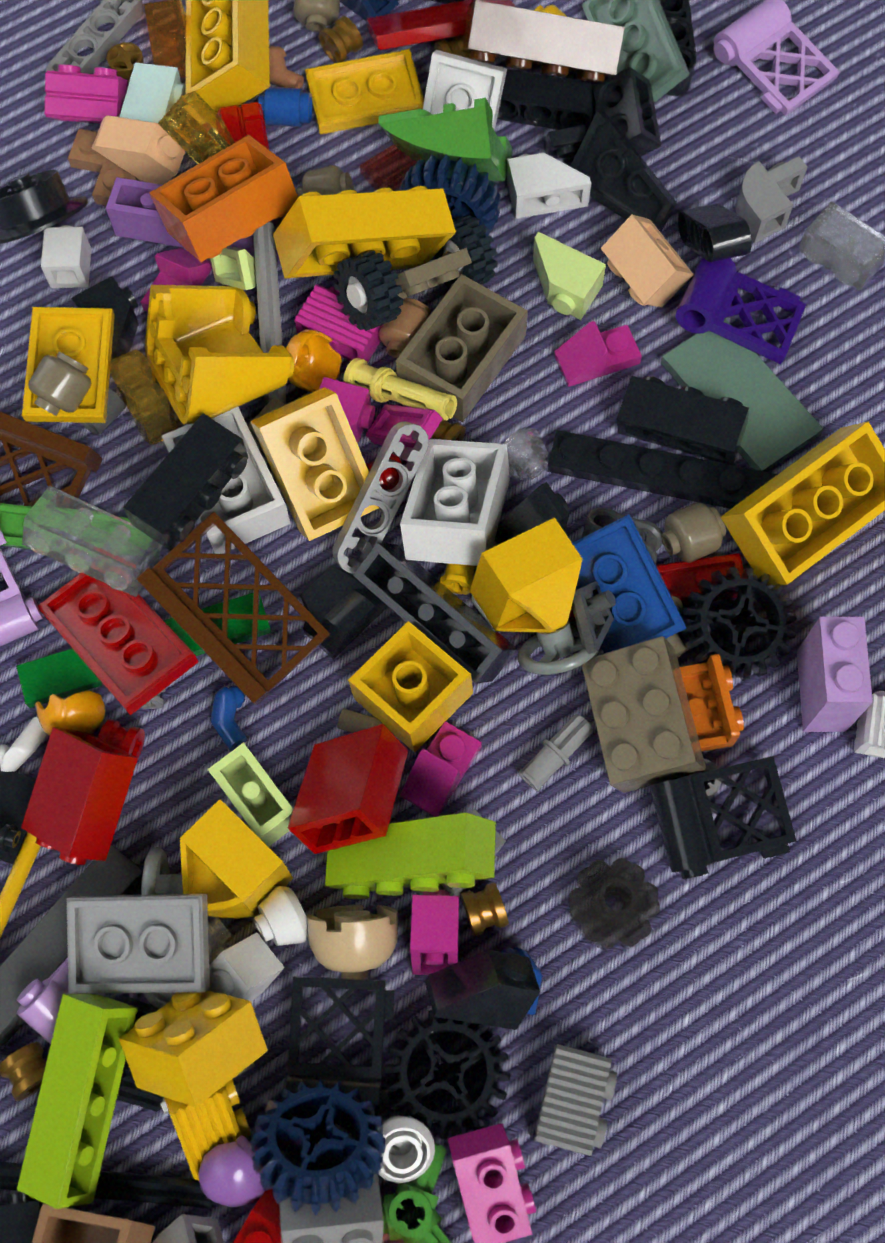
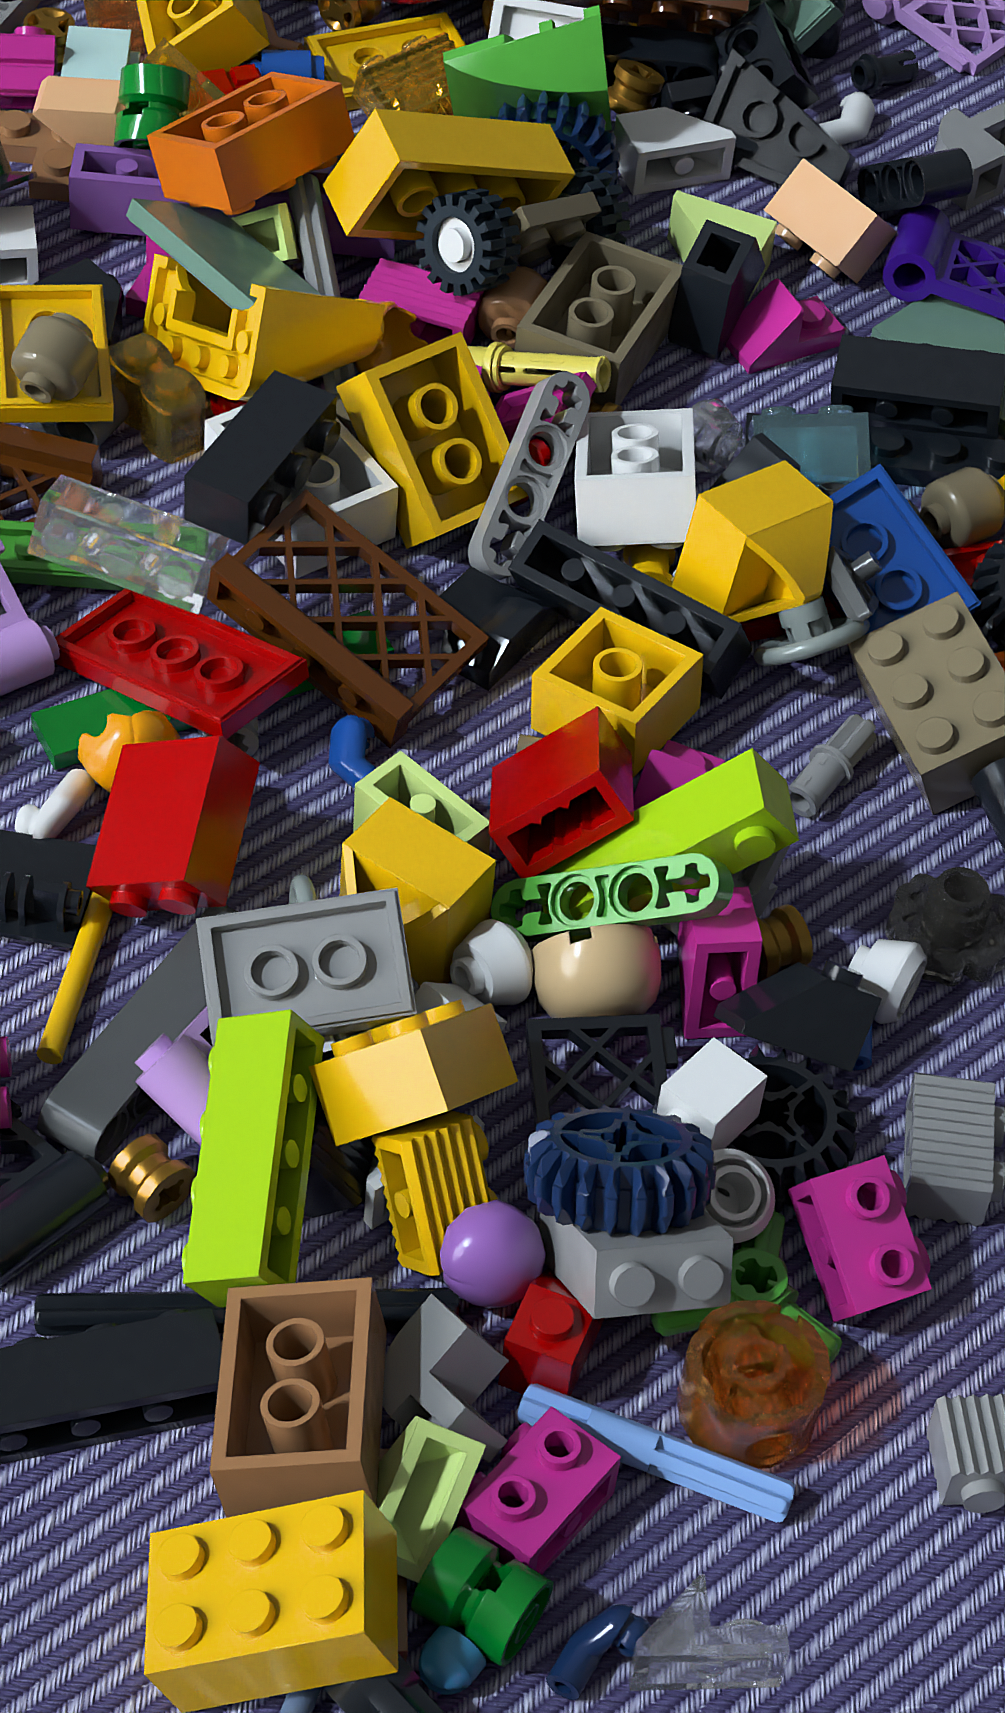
camera: 15 degrees left, 20 degrees down
(167, 154) = (152, 100): none -> green wheel
(204, 299) = (214, 250): none -> sand green tile
(357, 122) = (407, 80): none -> clear yellow brick
(360, 901) = (610, 893): none -> bright green beam
(398, 1076) = (714, 1093): none -> white brick
(528, 129) = (633, 87): none -> pearl gold wheel
(547, 326) = (714, 288): none -> black slope
(556, 948) = (891, 972): none -> white cone
(591, 478) = (826, 444): none -> clear light blue brick
(685, 163) = (854, 119): none -> white arm
(716, 114) = (873, 72): none -> black pin

